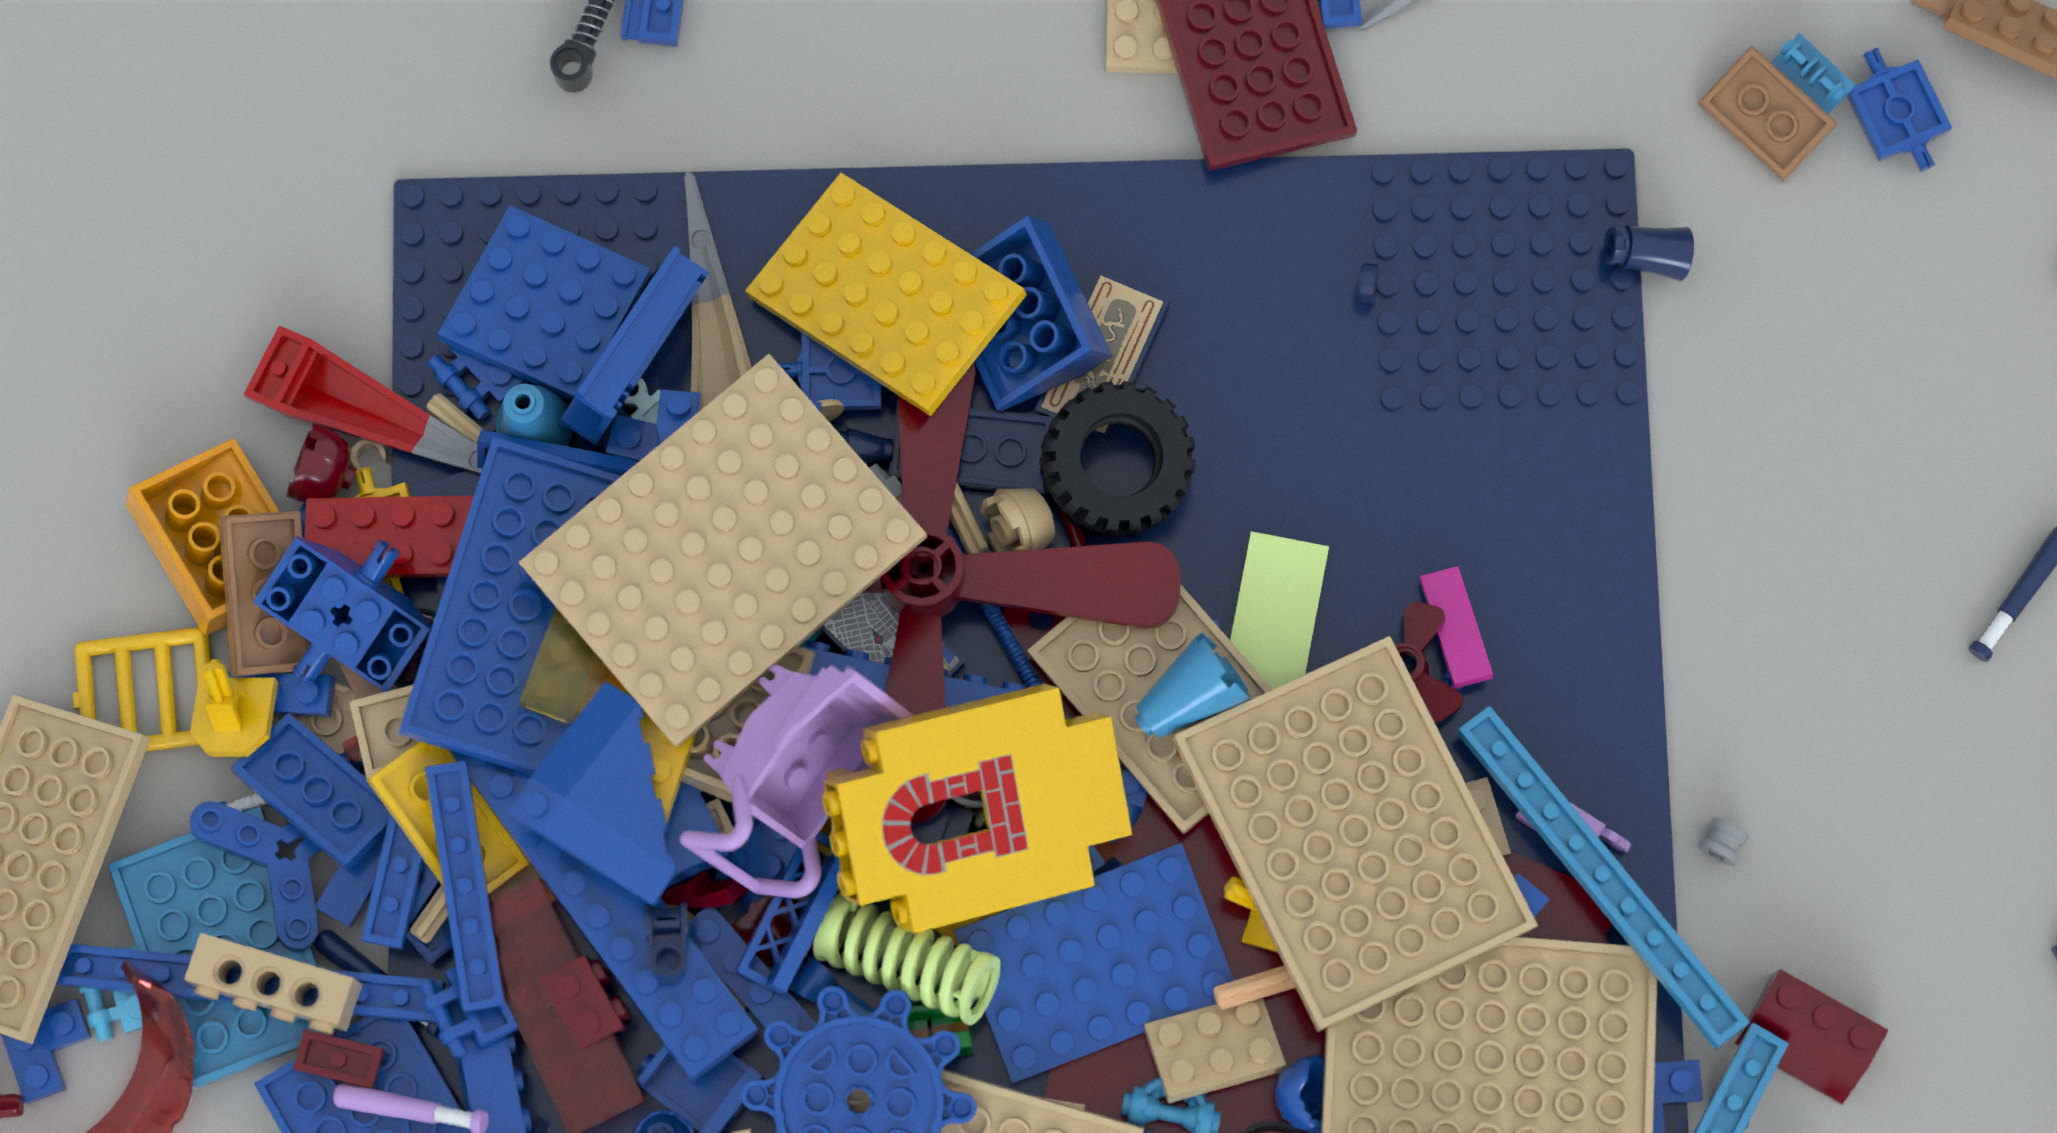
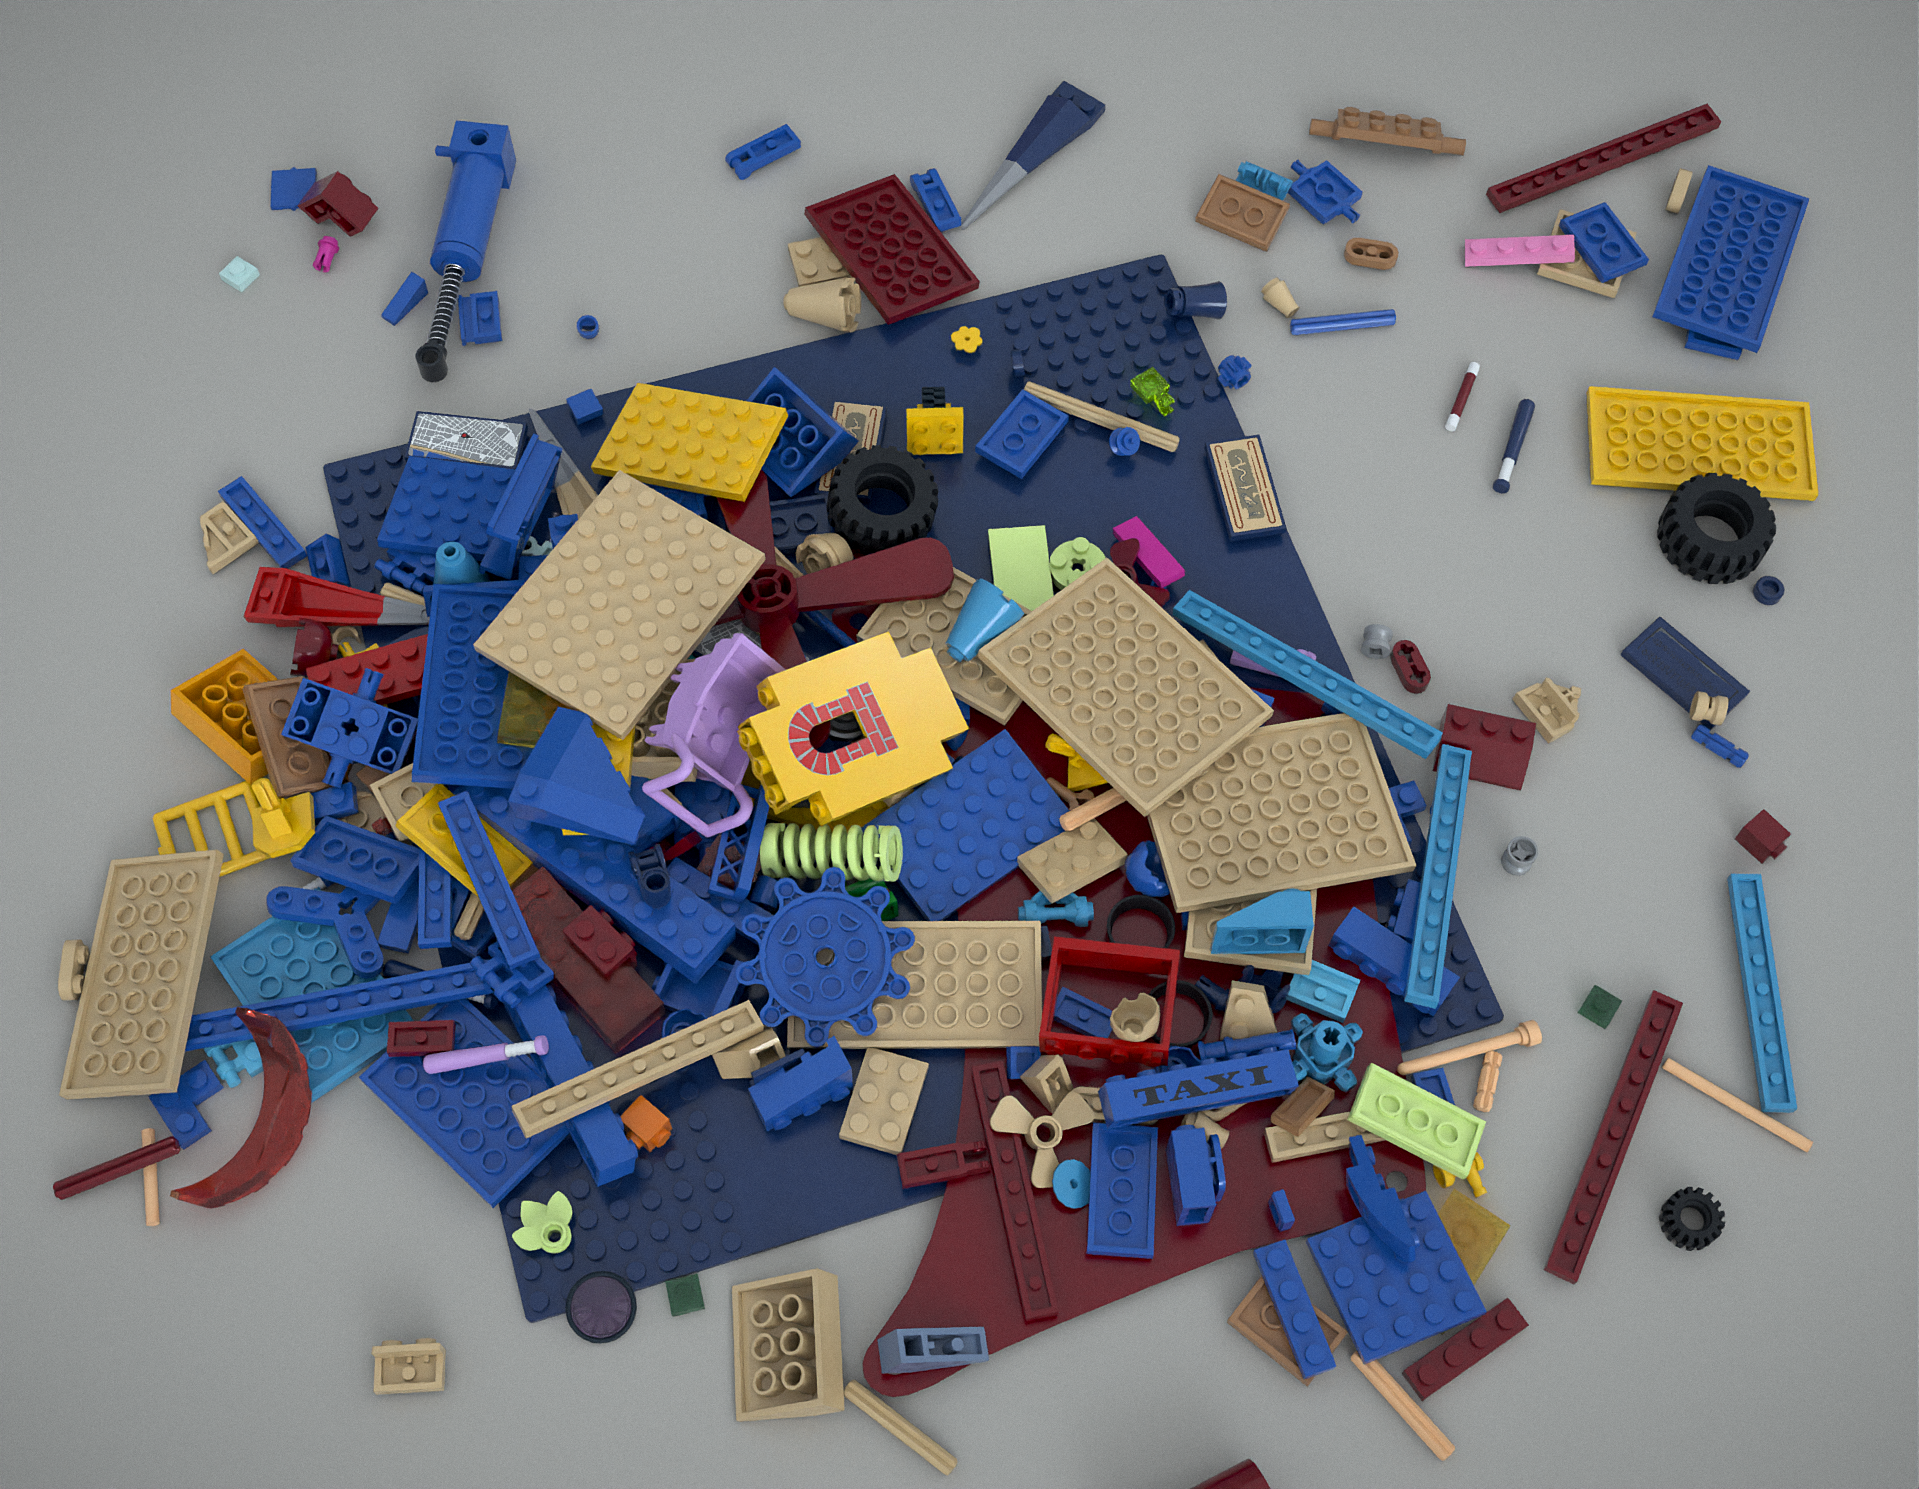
camera: 20 degrees left, 15 degrees down
(216, 956) = (310, 984): tan brick -> none
(243, 258) = (224, 536): none -> tan wing
(296, 252) = (262, 523): none -> blue plate
(370, 334) = (328, 560): none -> blue slope
(591, 201) = (467, 439): none -> tile
(761, 188) = (584, 406): none -> blue tile
(797, 50) = (588, 323): none -> blue hinge
(1132, 114) = (826, 303): none -> tan cone
(1223, 355) = (934, 425): none -> yellow plate
(1240, 952) = (1069, 796): none -> medium nougat bar
(1320, 216) = (967, 339): none -> yellow plant
(1335, 607) = (1069, 553): none -> yellowish green plate
(1341, 396) = (1021, 434): none -> blue plate
(1459, 396) = (1102, 416): none -> tan axle
(1477, 448) = (1124, 441): none -> blue wheel
(1543, 372) = (1151, 387): none -> clear neon green plate
(1621, 561) = (1245, 488): none -> tile
(1668, 374) = (1234, 372): none -> blue gear
(1766, 887) = (1414, 665): none -> dark red beam
(1774, 268) = (1279, 296): none -> tan cone
(1851, 330) = (1342, 322): none -> blue axle
(1923, 1001) = (1550, 707): none -> tan slope
(1930, 227) = (1371, 253): none -> medium nougat plate
(1978, 495) = (1462, 396): none -> dark red bar

